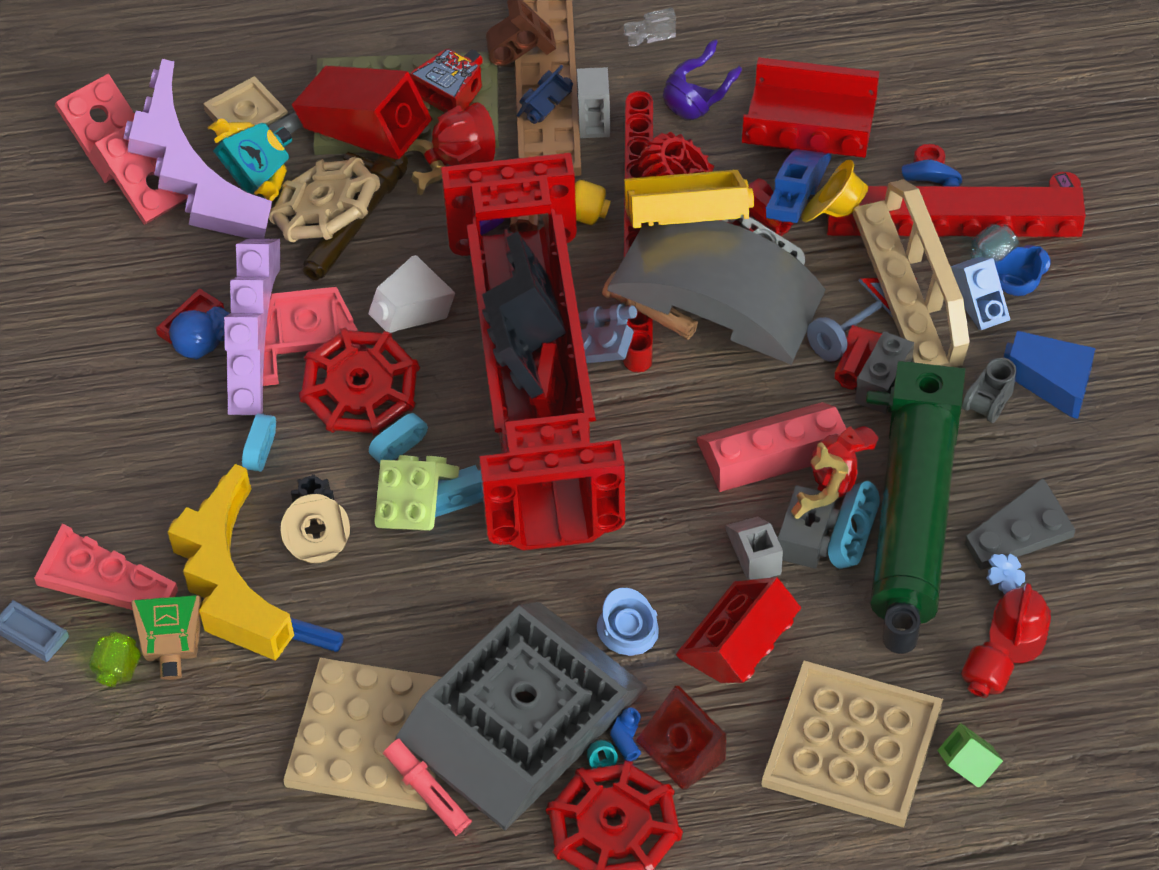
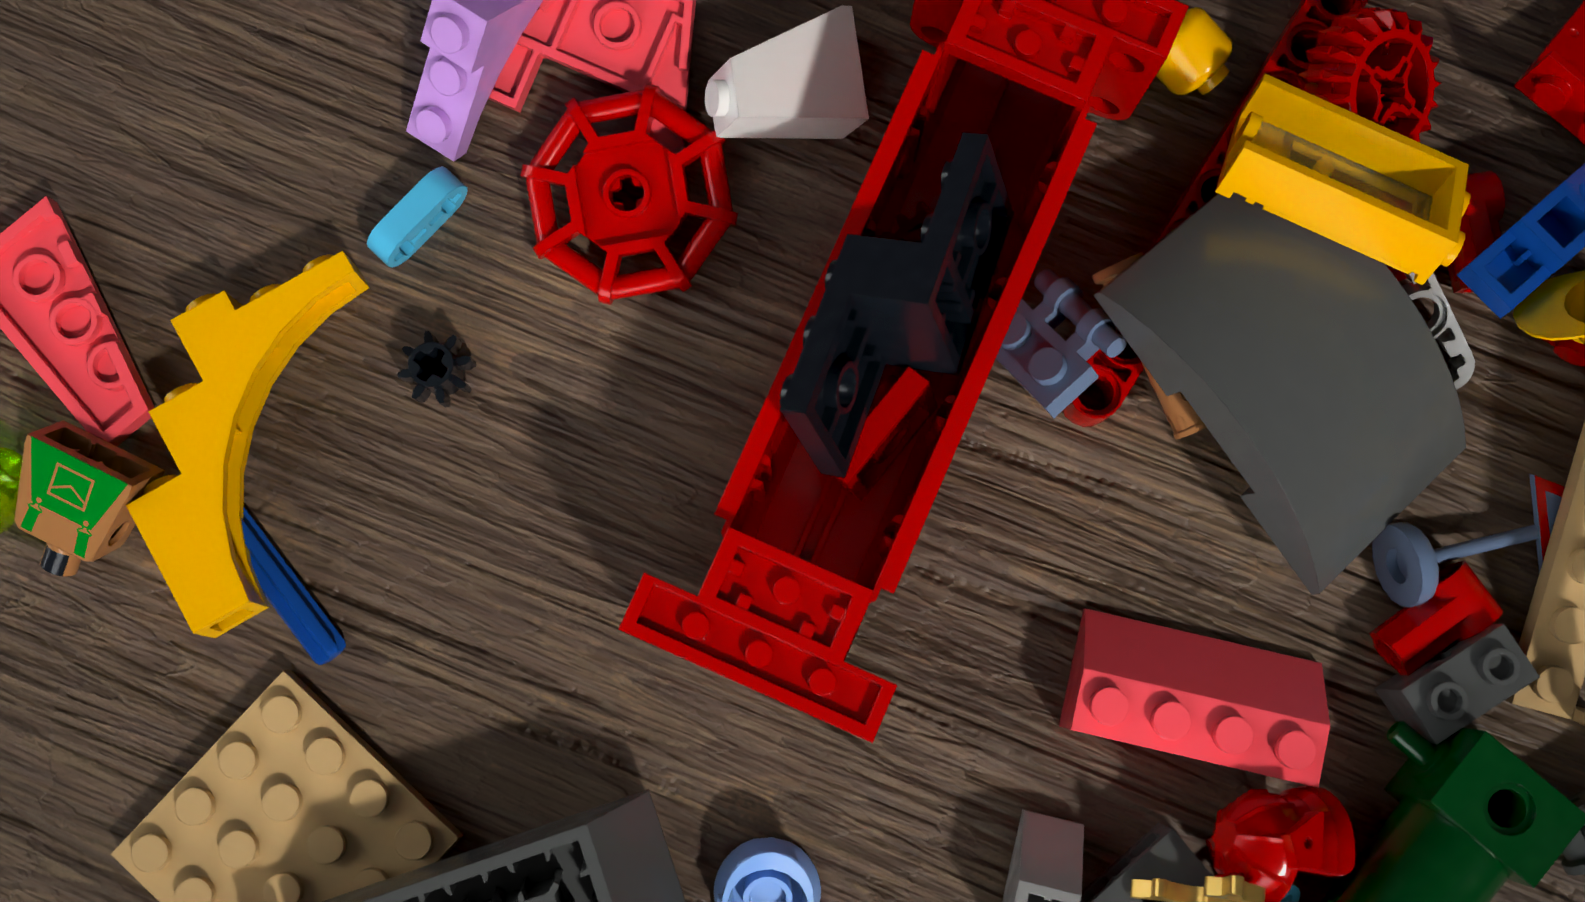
camera: 30 degrees right, 30 degrees up
(298, 518) = (418, 414): tan plate -> none
(398, 438) = (626, 338): medium azure beam -> none
(410, 491) = (579, 456): yellowish green bracket -> none
(459, 492) = (653, 477): medium azure panel -> none

